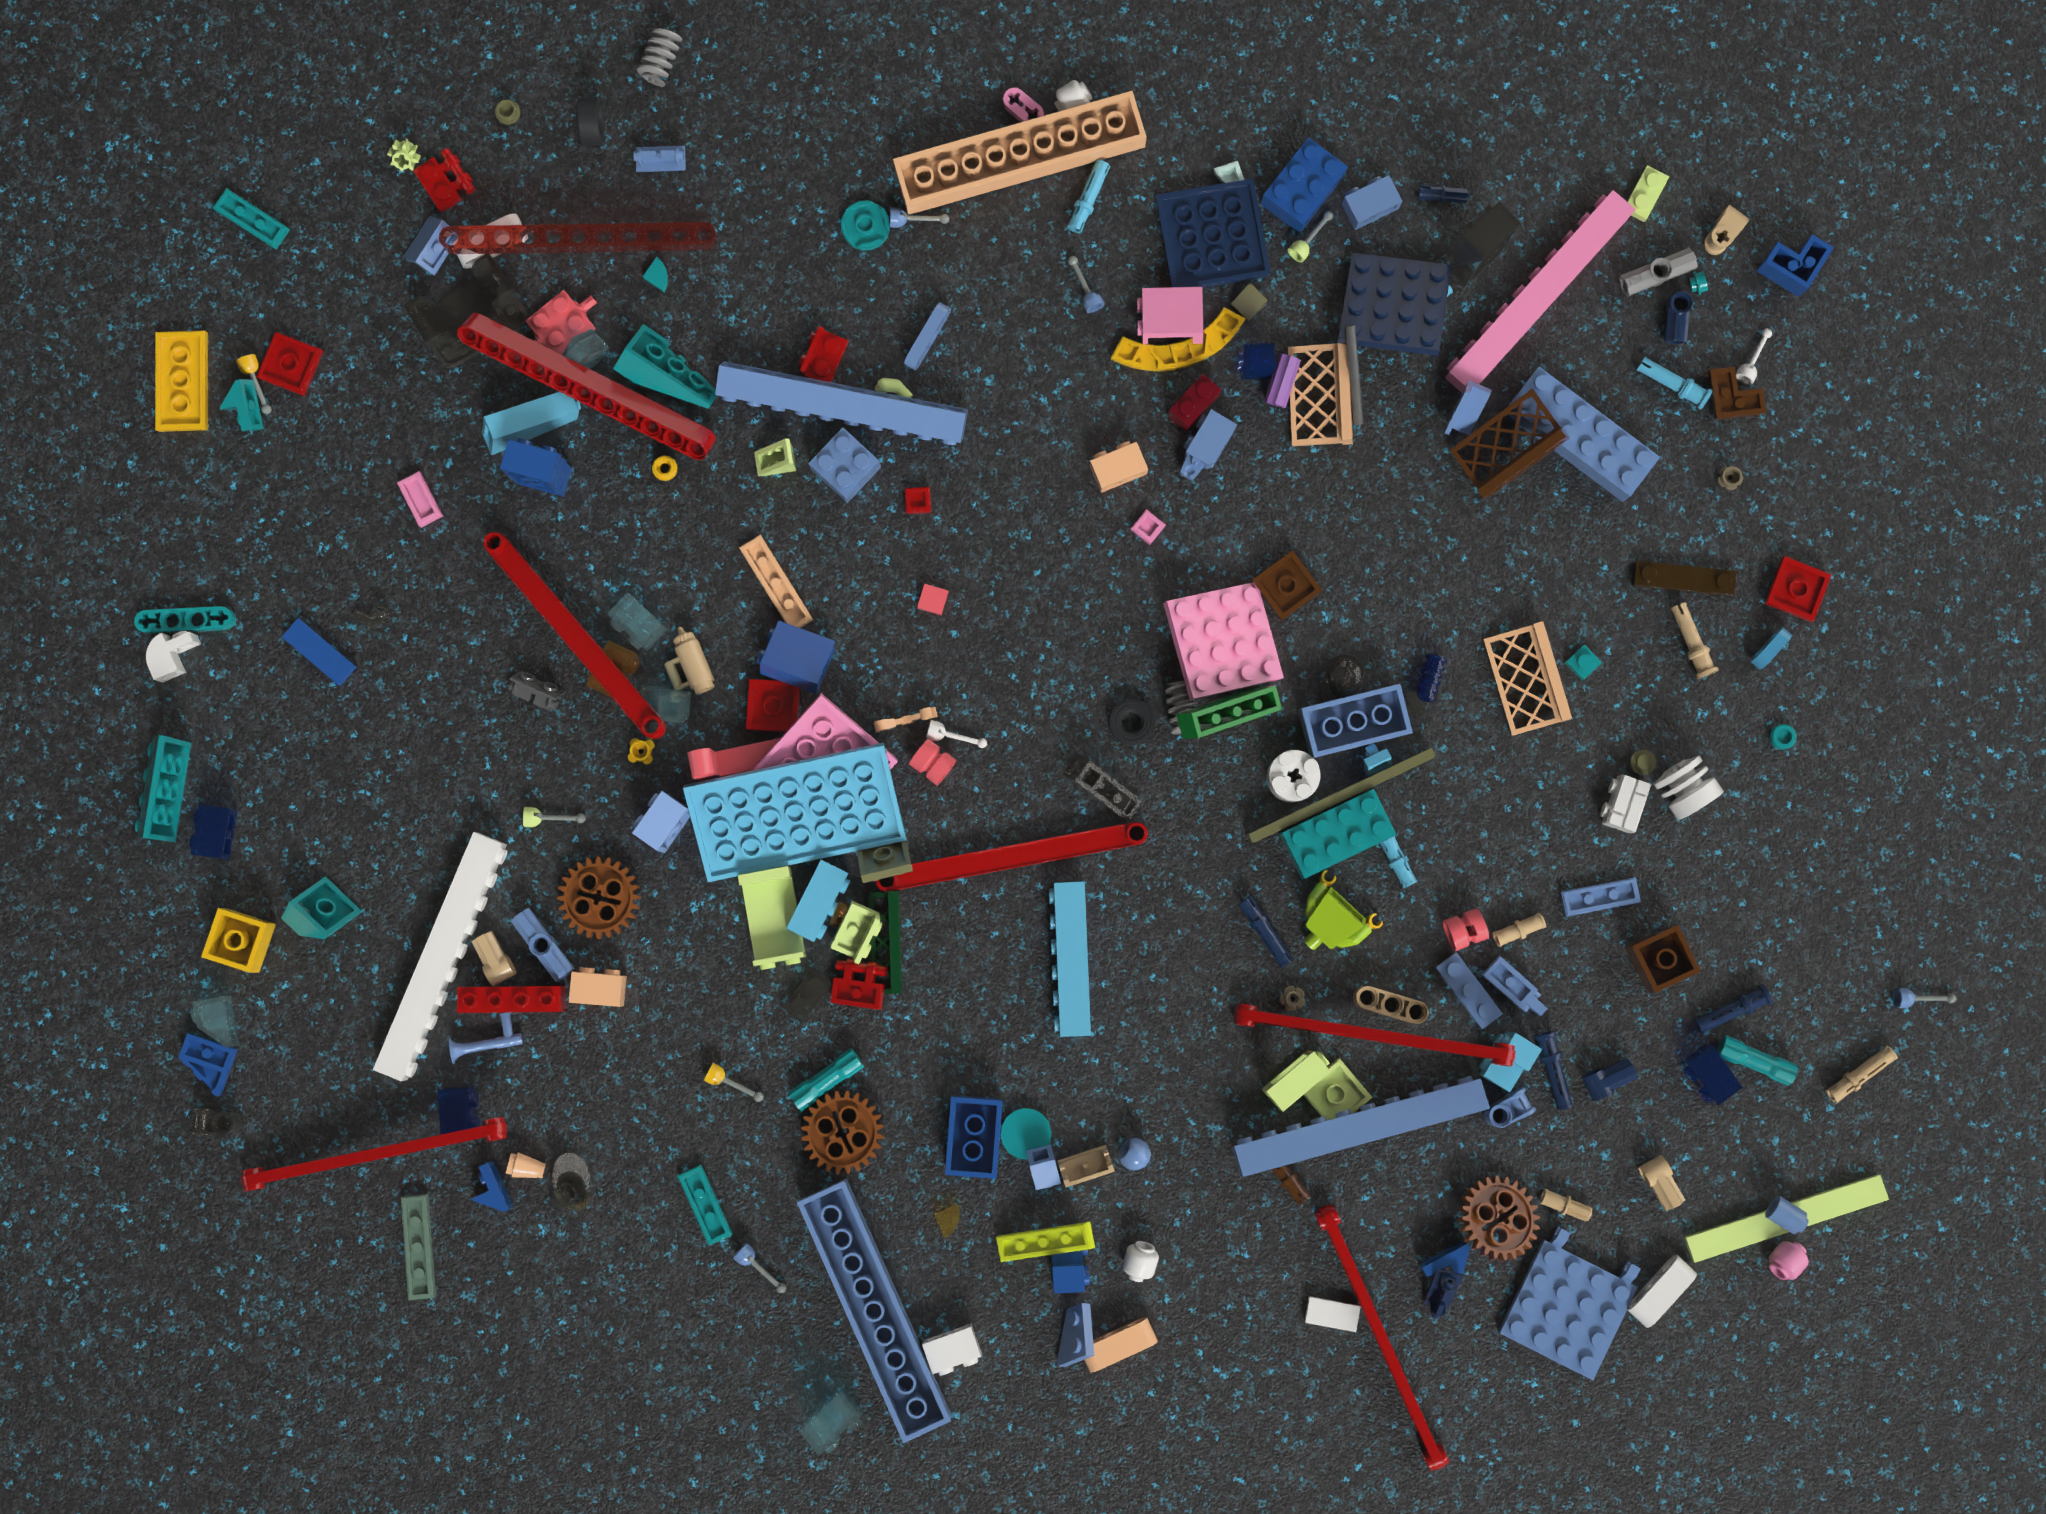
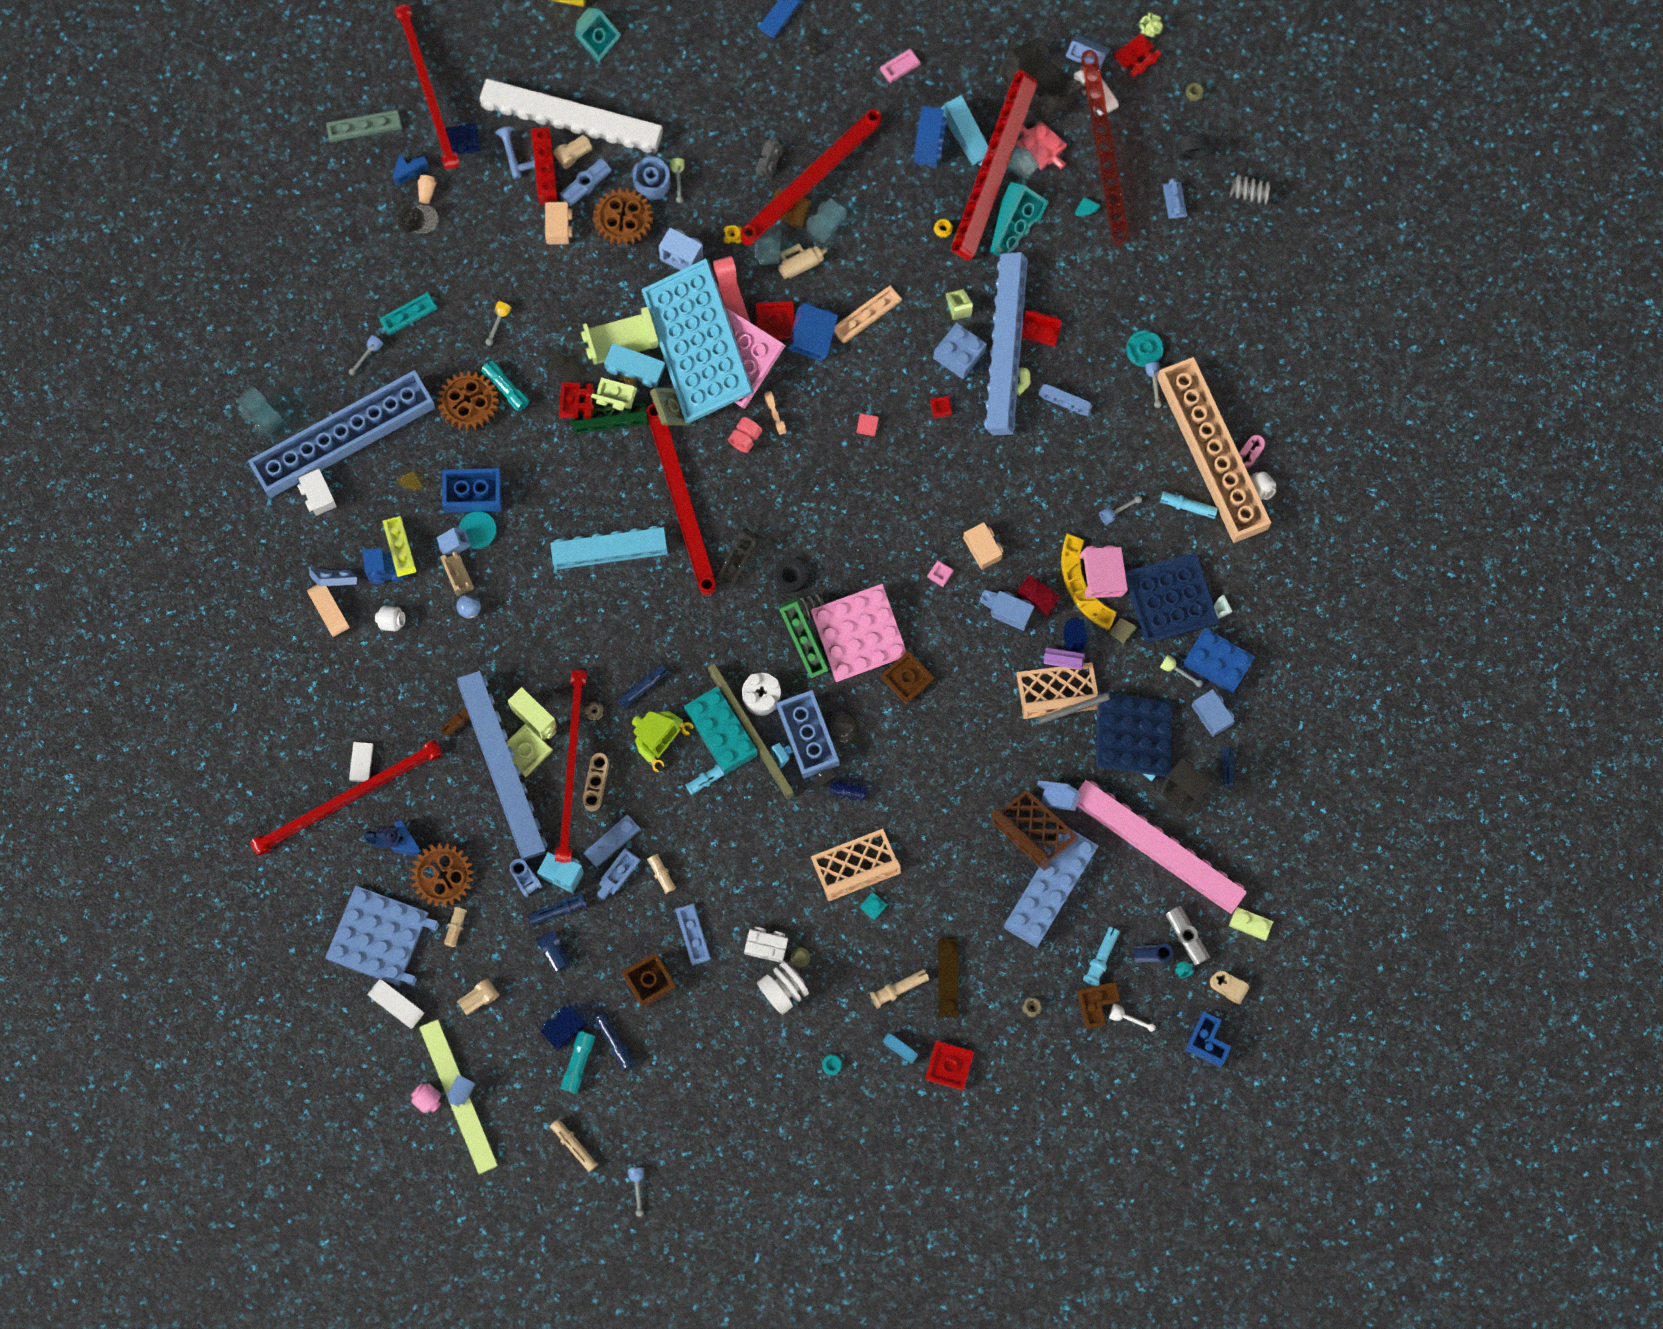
camera: 80 degrees right, 10 degrees down
(551, 839) = (651, 168): none -> medium blue brick
(937, 732) = (768, 437): white hinge -> none
(1457, 933) = (655, 825): coral wheel -> none

